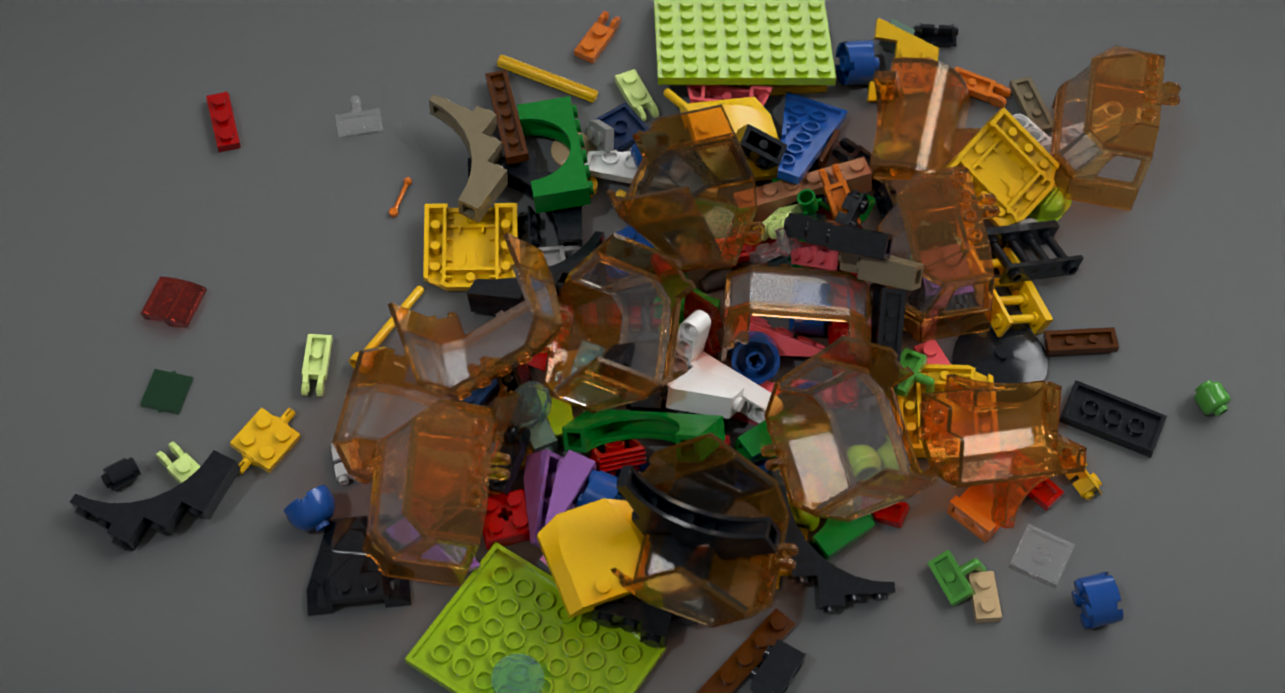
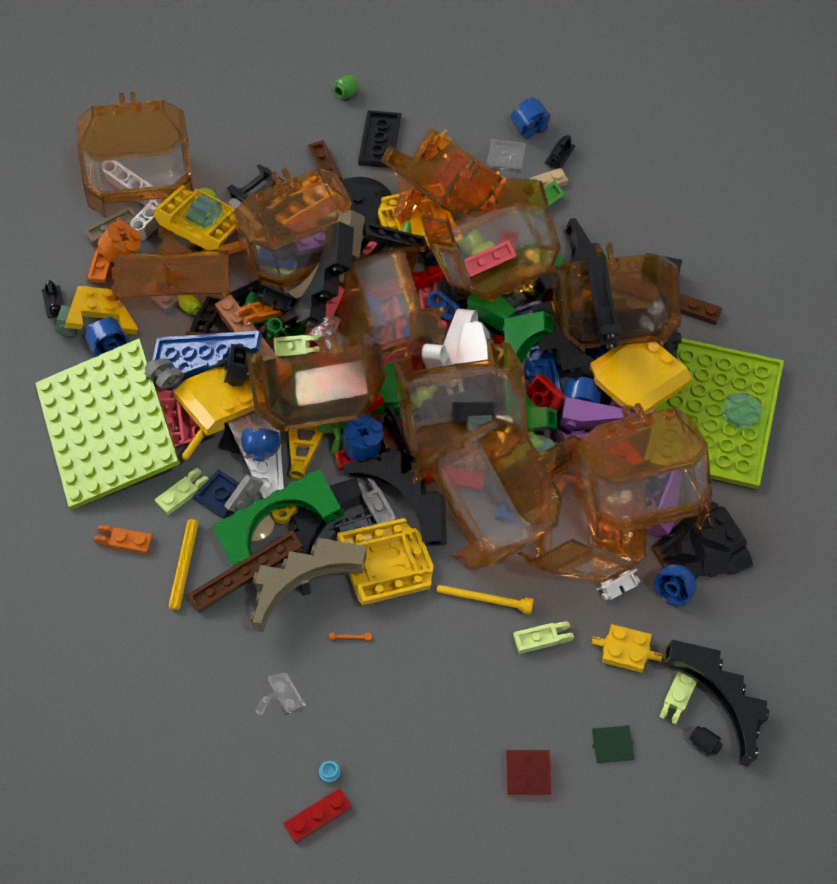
camera: 105 degrees left, 0 degrees up
(261, 139) = (329, 771): none -> medium azure plate
(791, 93) = (163, 372): none -> light grey brick
(838, 446) = (489, 258): none -> coral plate
(989, 85) = (119, 239): none -> orange brick
(1007, 173) = (204, 210): none -> clear light blue brick
(1030, 627) = (560, 152): none -> black hinge

